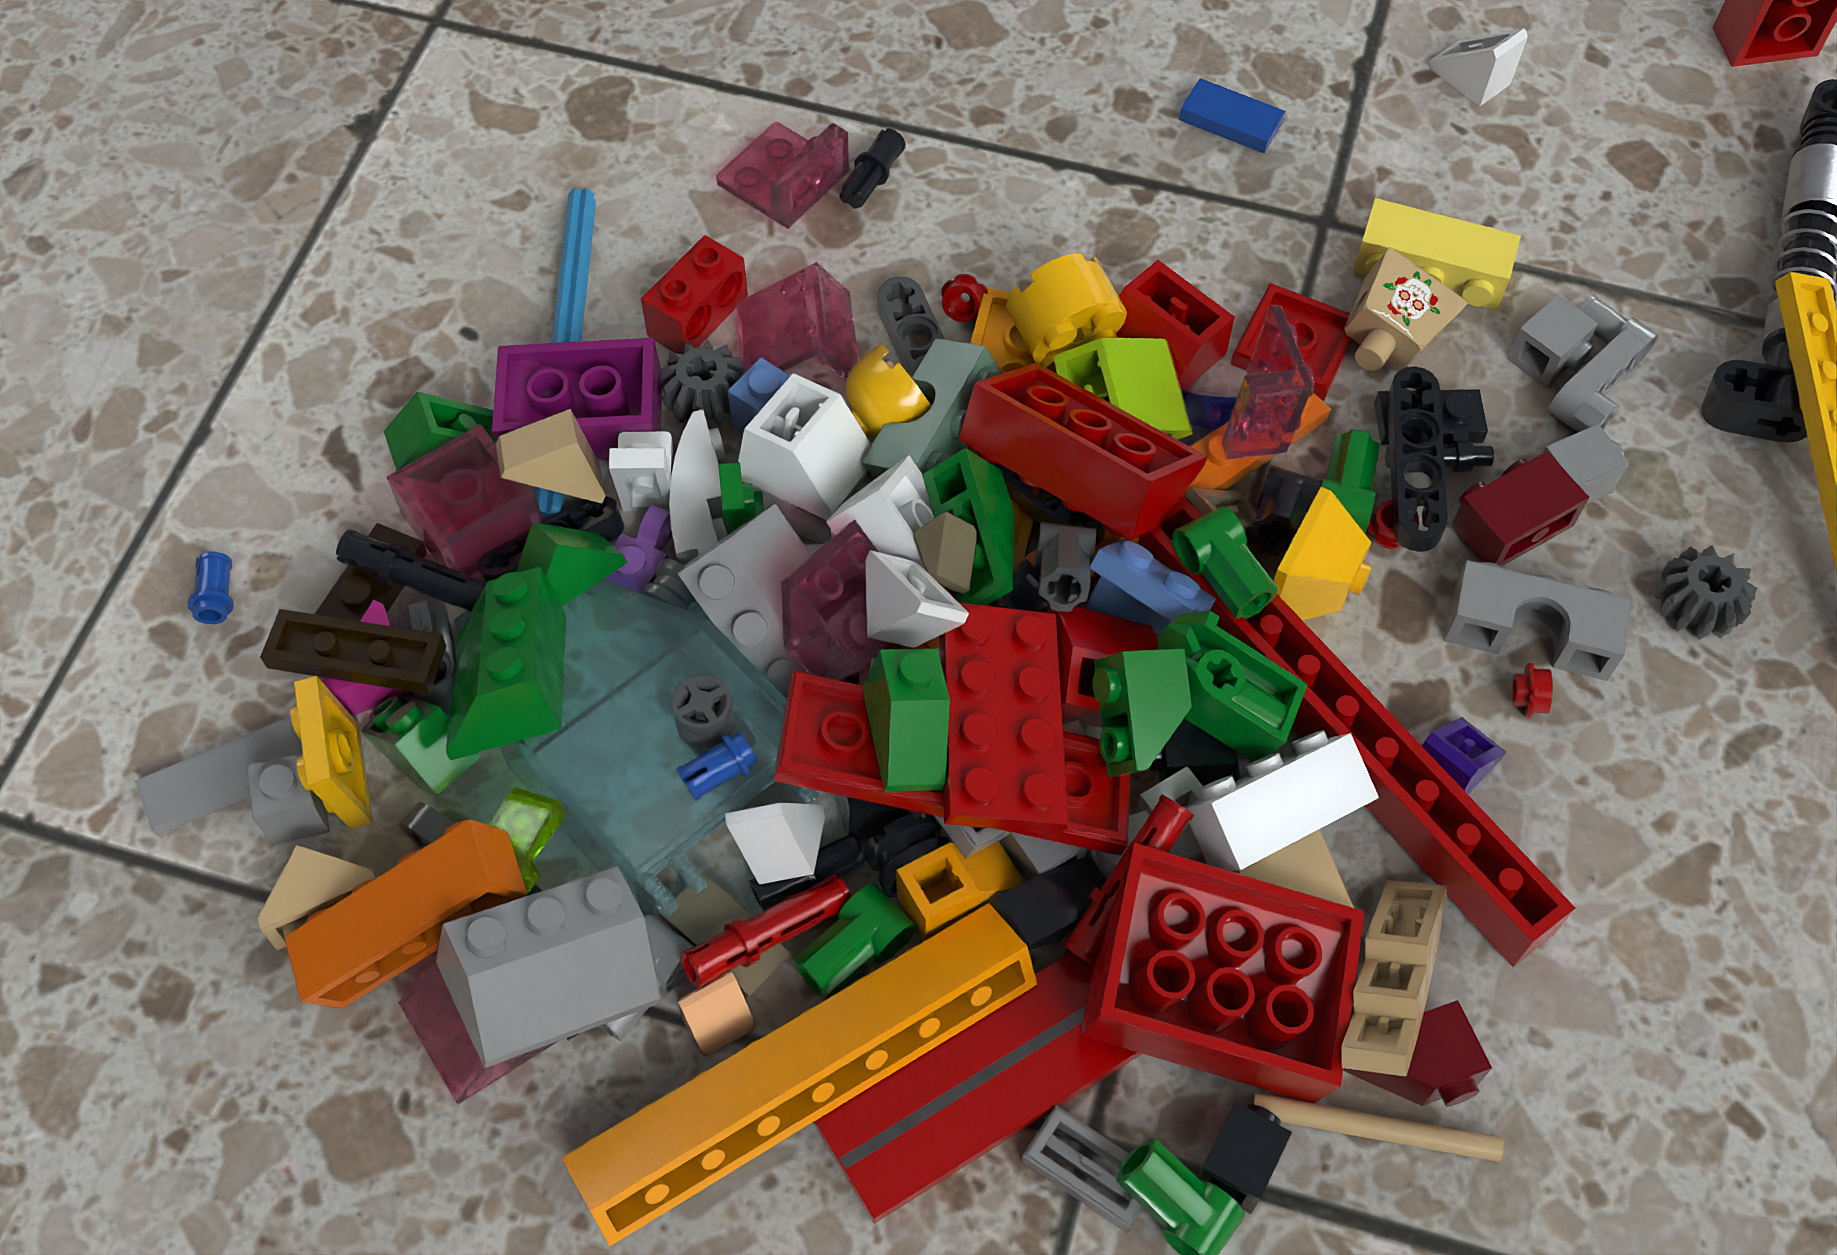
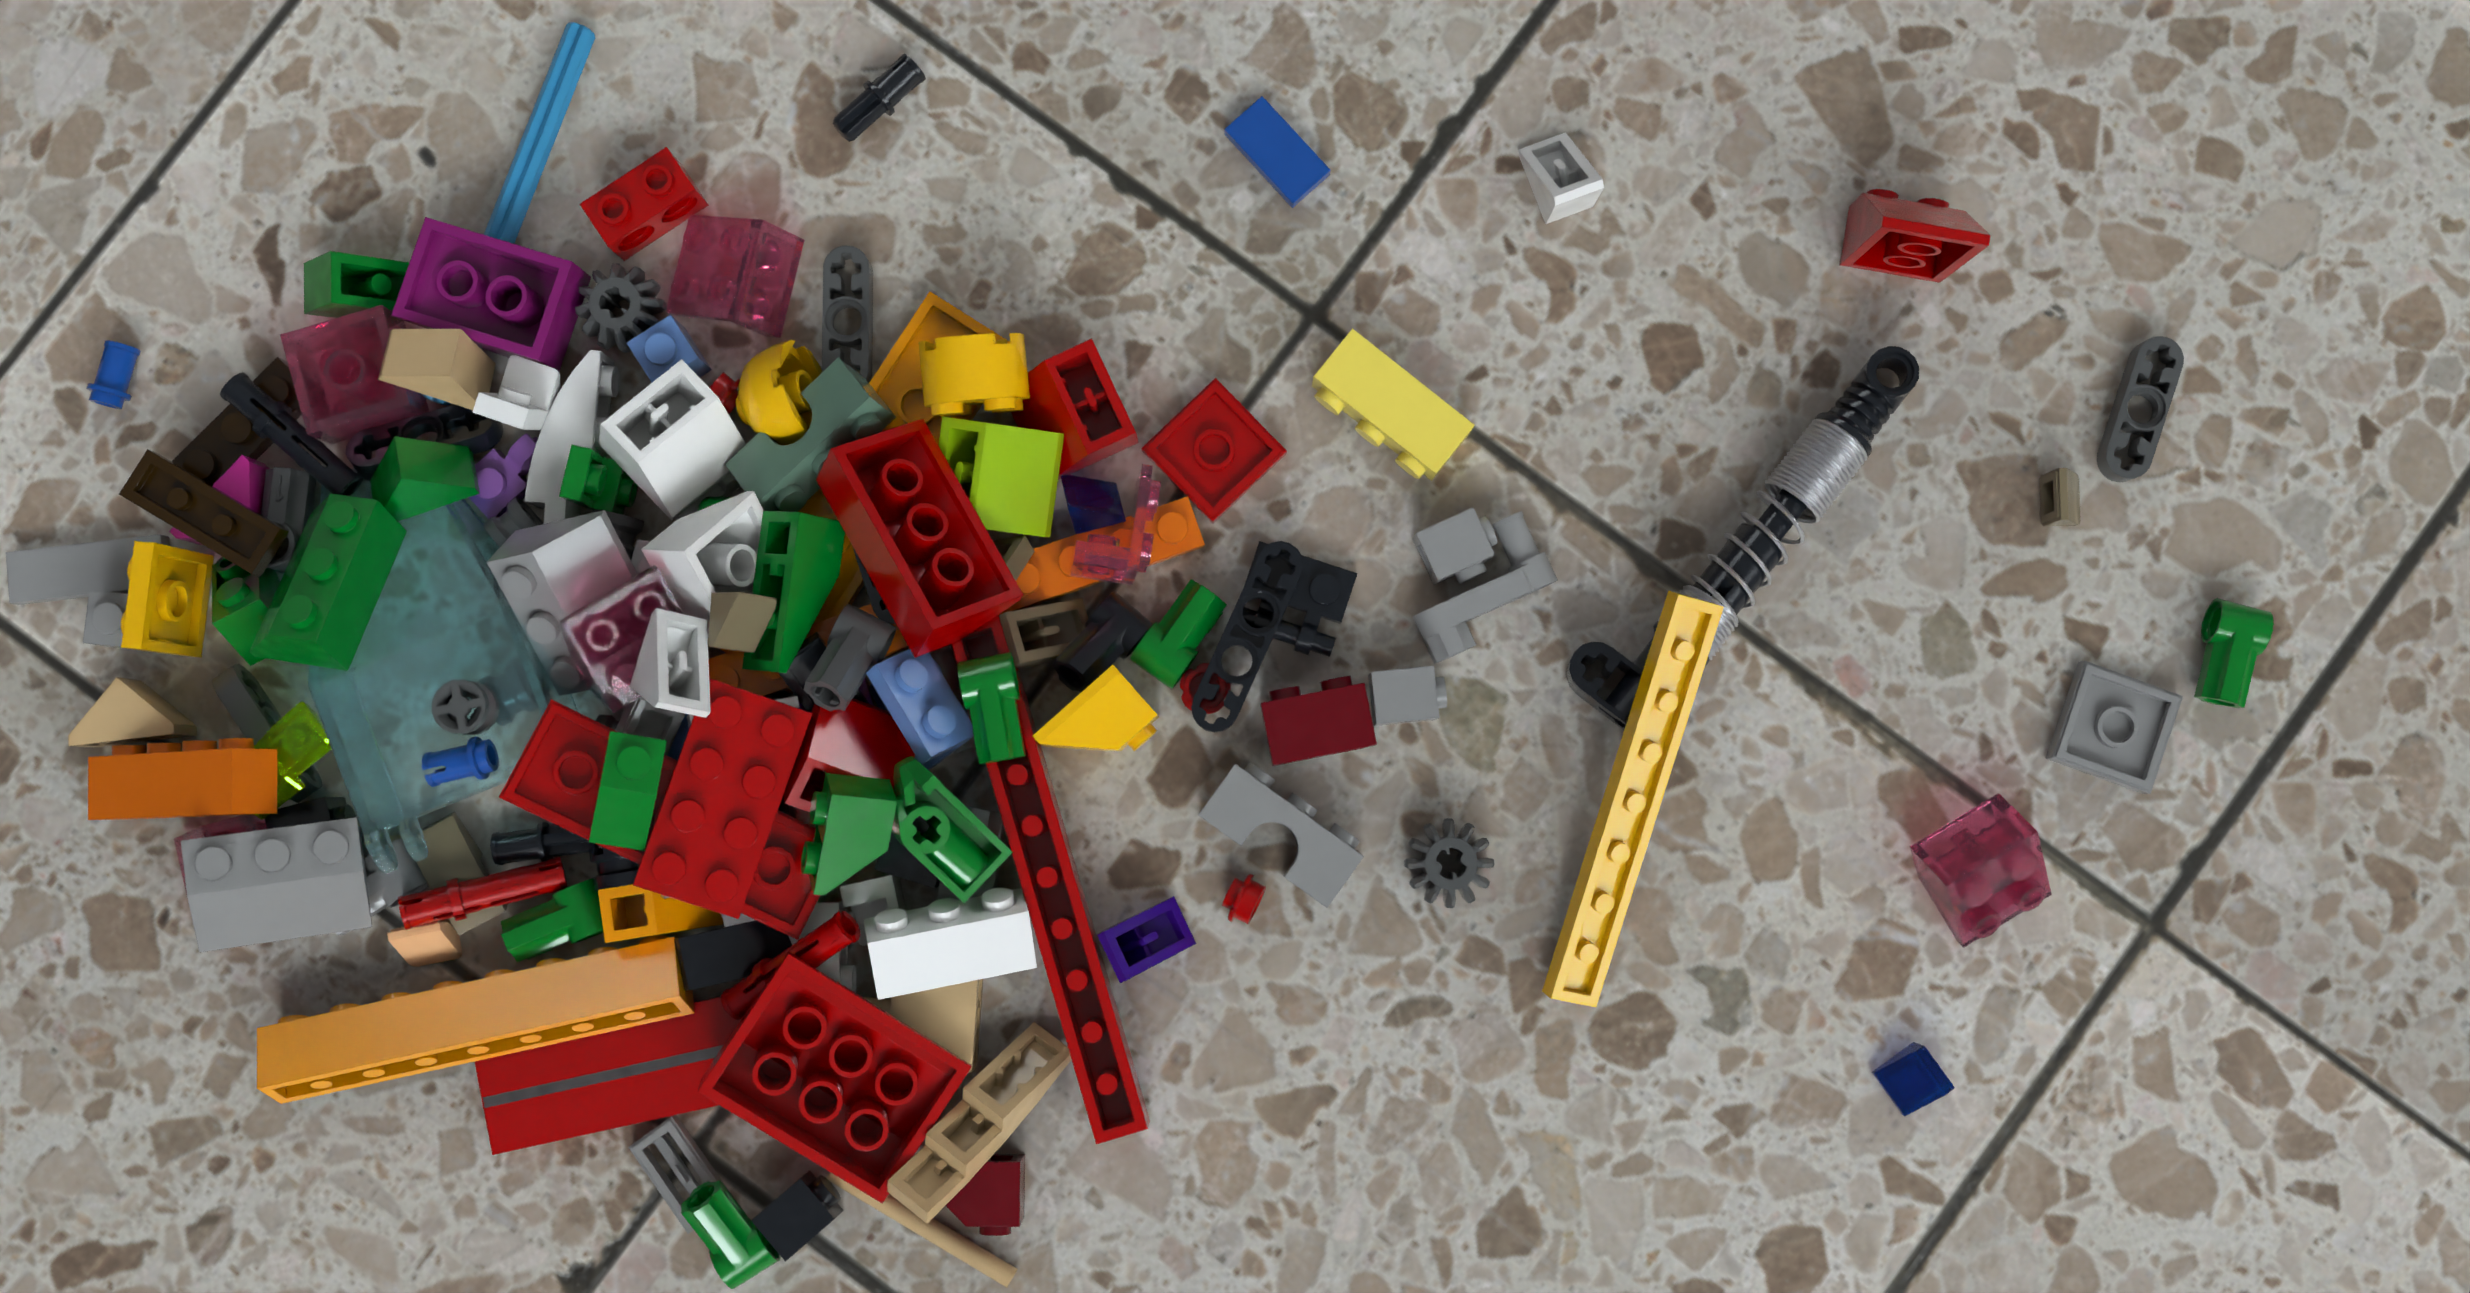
camera: 20 degrees right, 25 degrees up
(778, 839) = (508, 824): white slope -> none
(786, 172) = (788, 71): clear pink bracket -> none
(955, 305) = (906, 291): red plate -> none
(1399, 313) = (1312, 470): tan torso -> none

